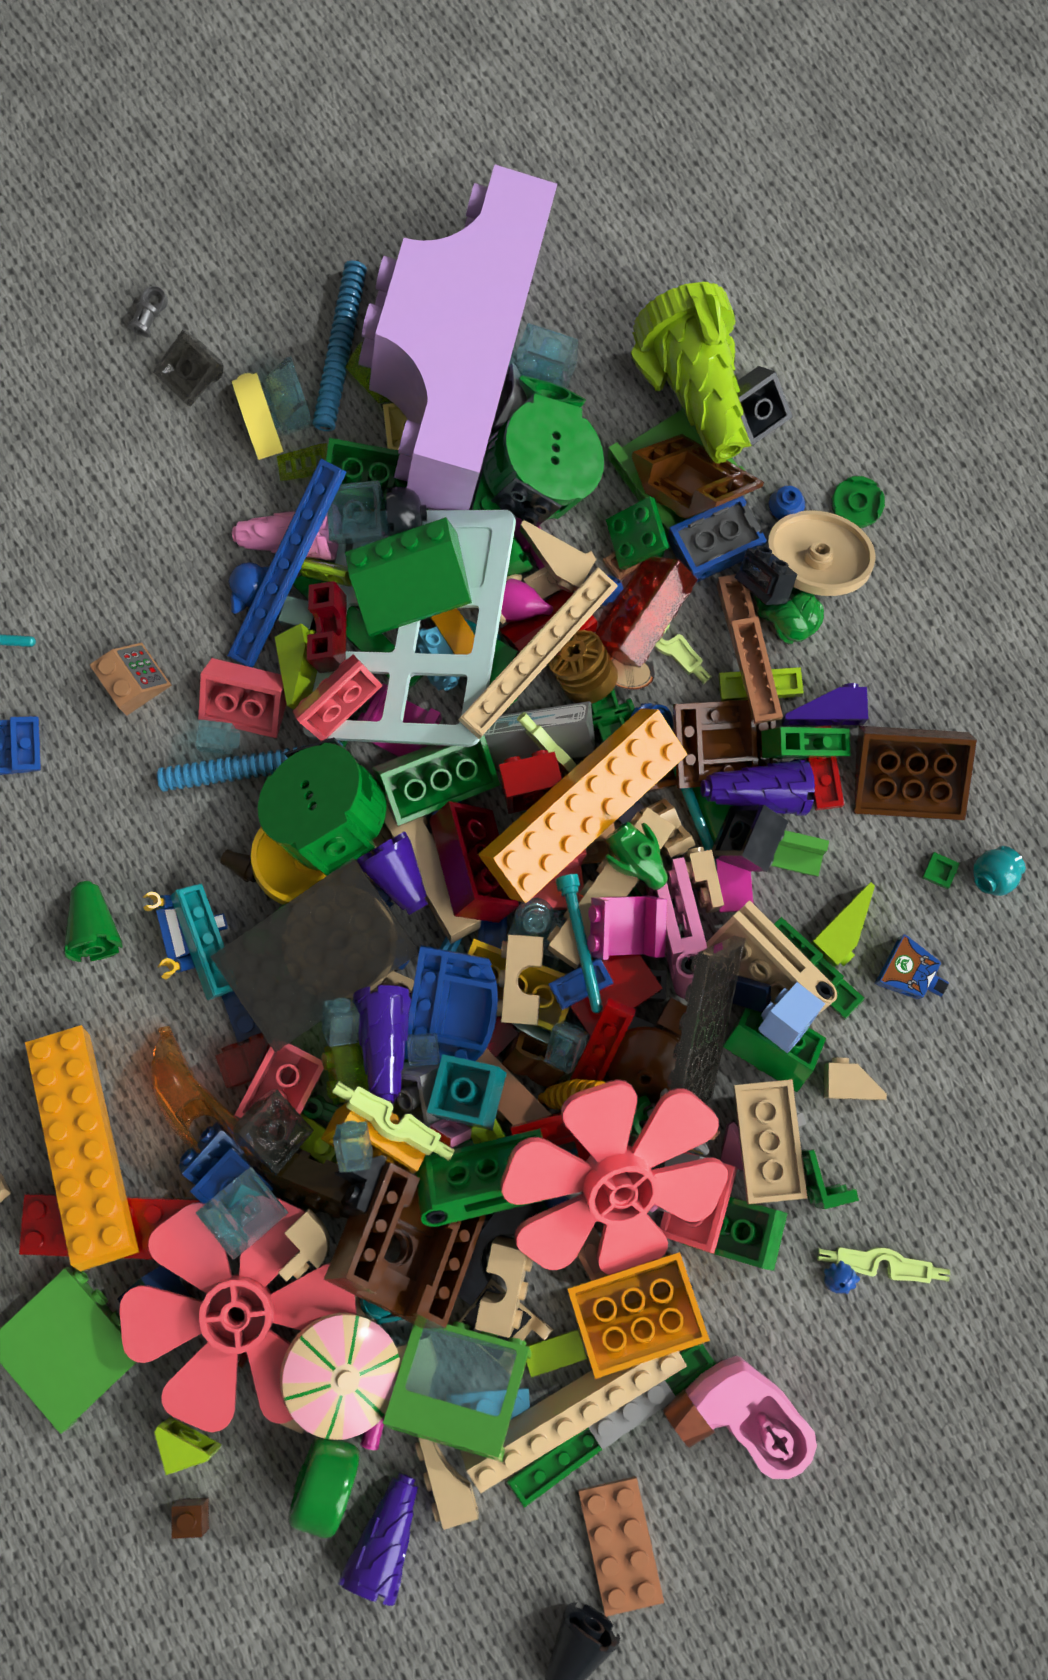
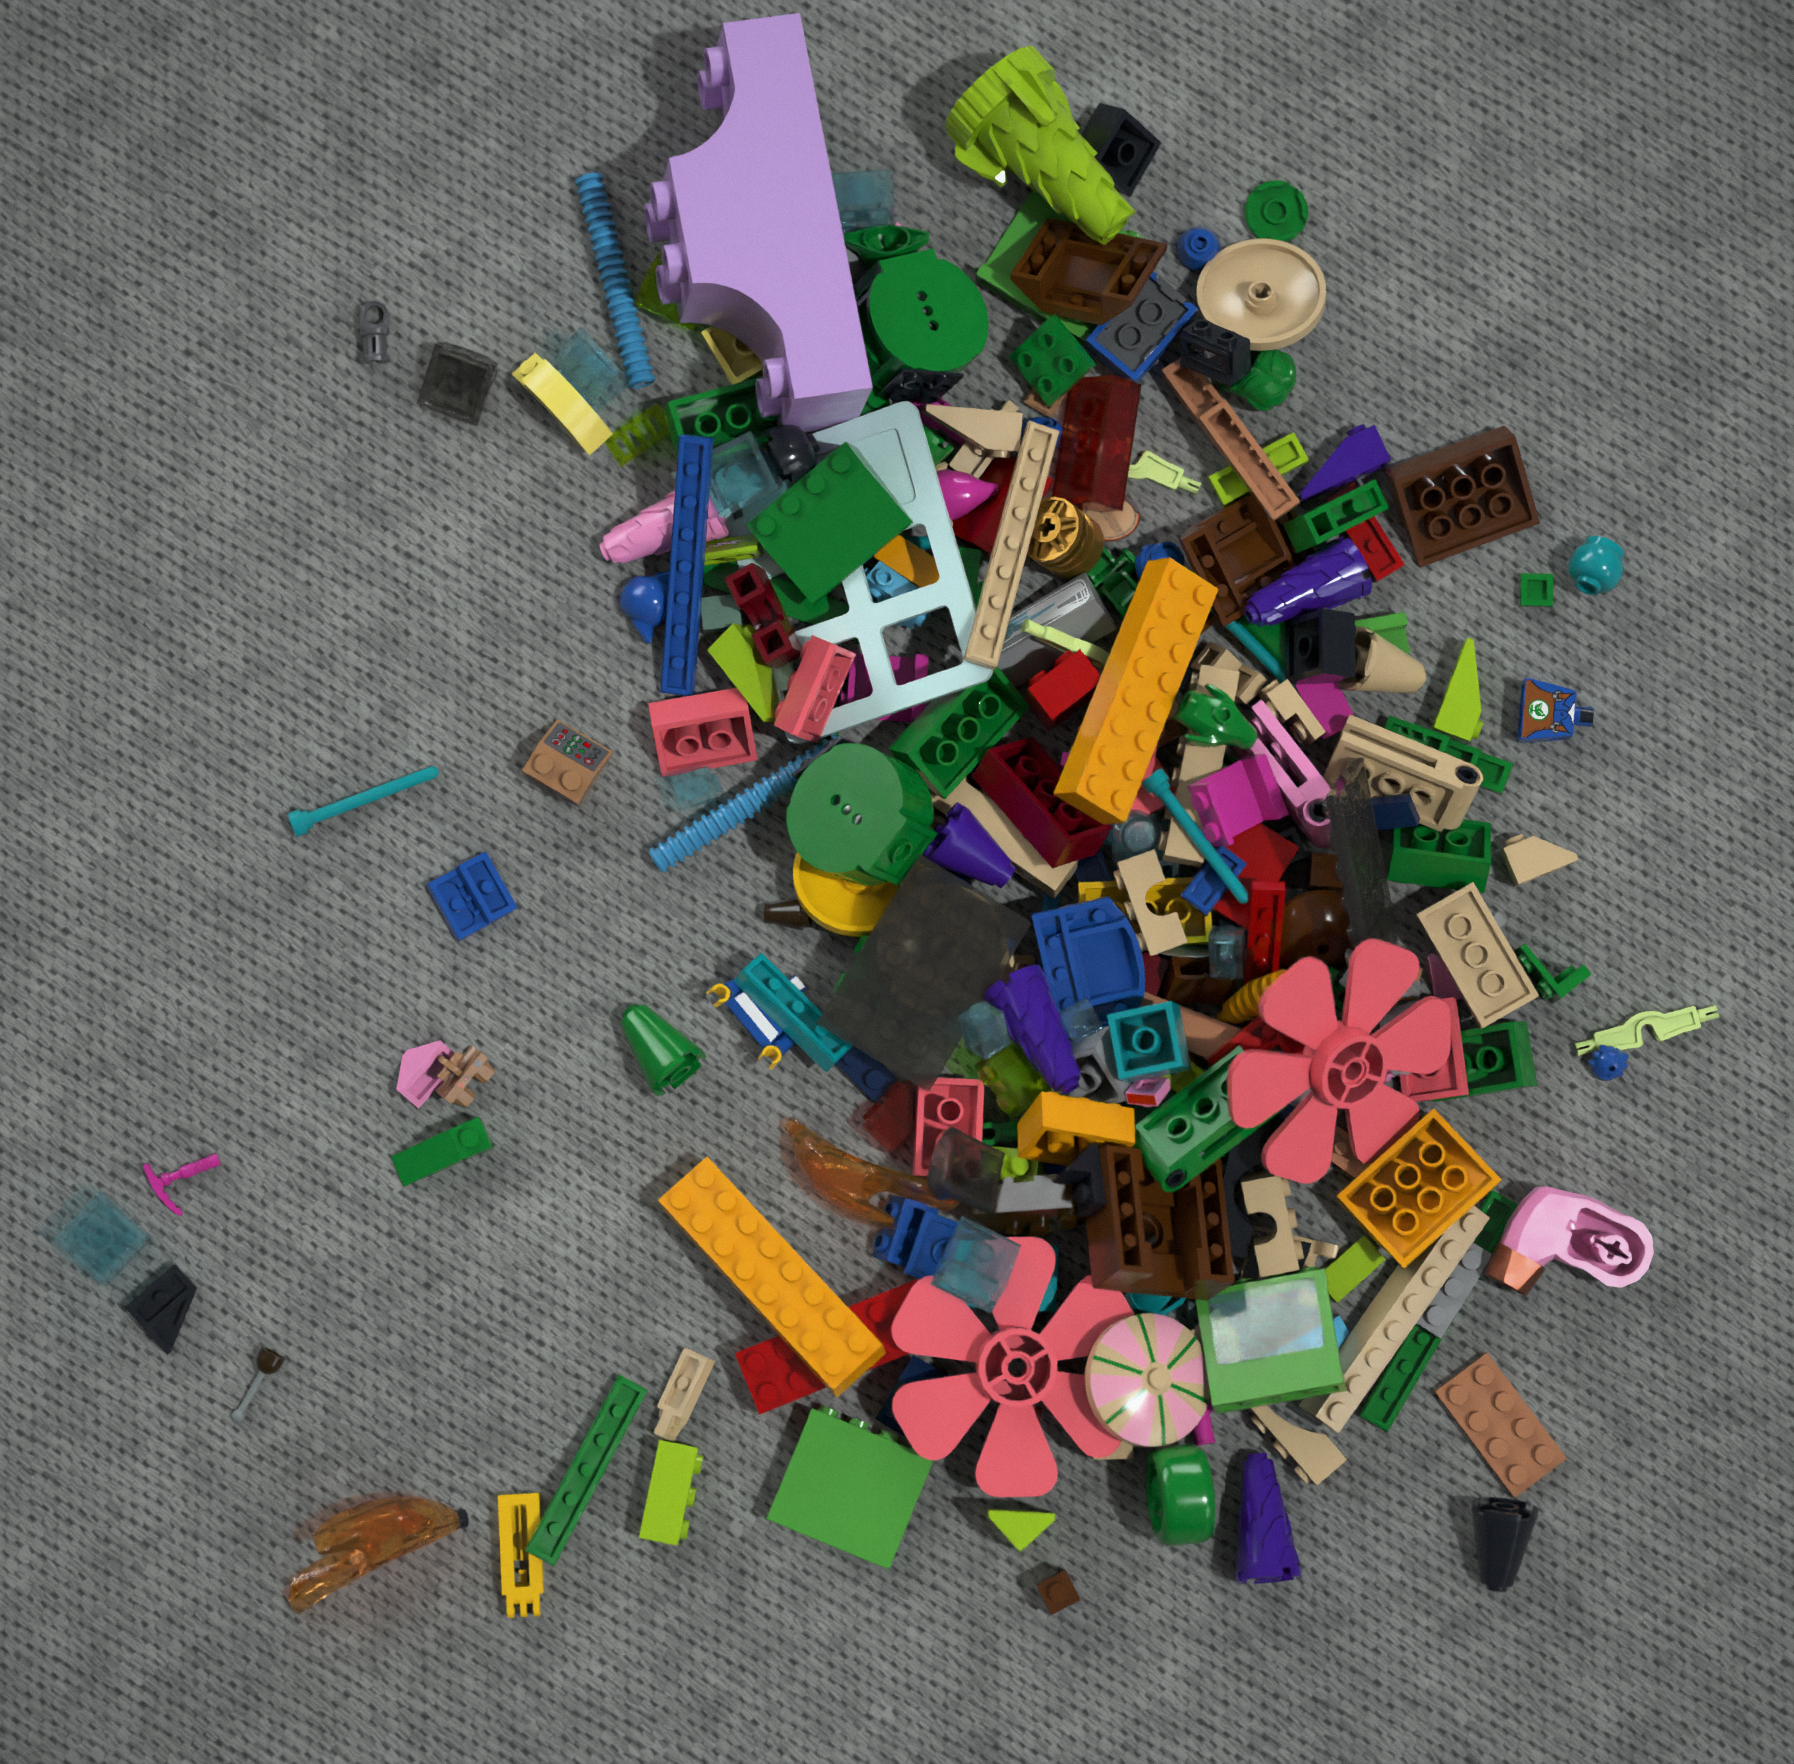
camera: 30 degrees left, 5 degrees up
(313, 1242) = (1061, 1261): tan brick -> none
(353, 1146) = (1063, 1144): clear light blue brick -> none
(379, 1112) = (1071, 1101): yellowish green piece -> none
(790, 1017) = (1444, 819): light blue brick -> none
(792, 875) = (1383, 666): none -> tan cone

